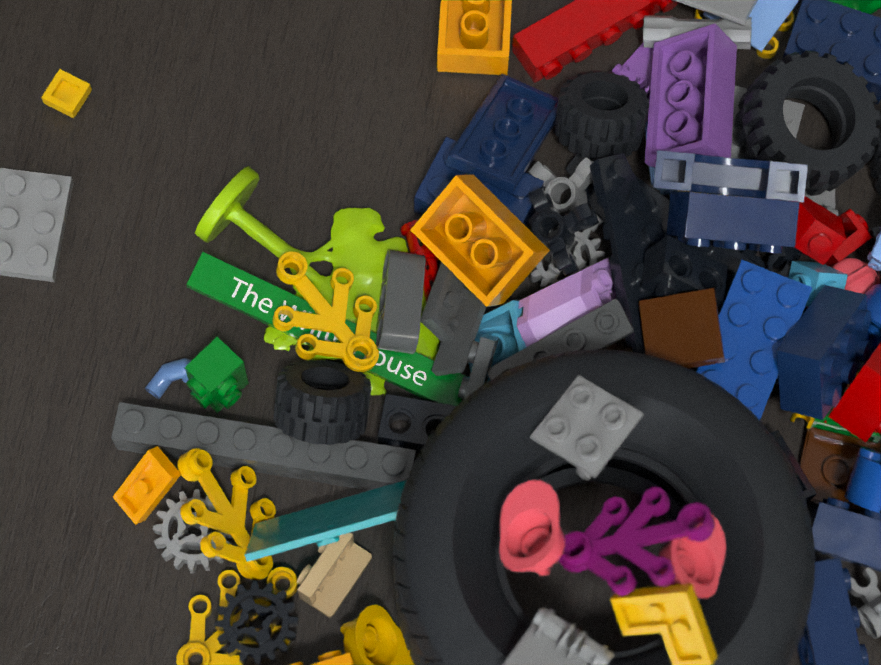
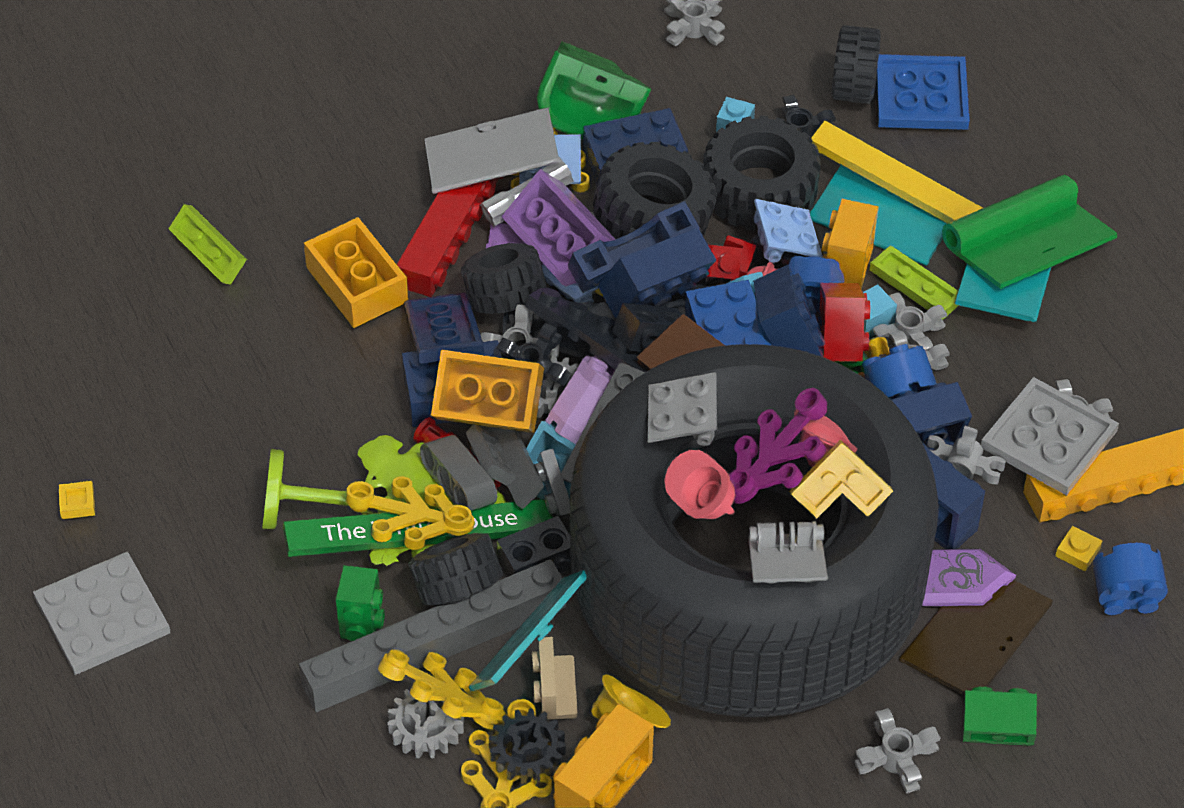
camera: 35 degrees left, 20 degrees down
(146, 485) = (365, 709): light orange plate -> none
(166, 375) = (313, 637): medium blue arm -> none

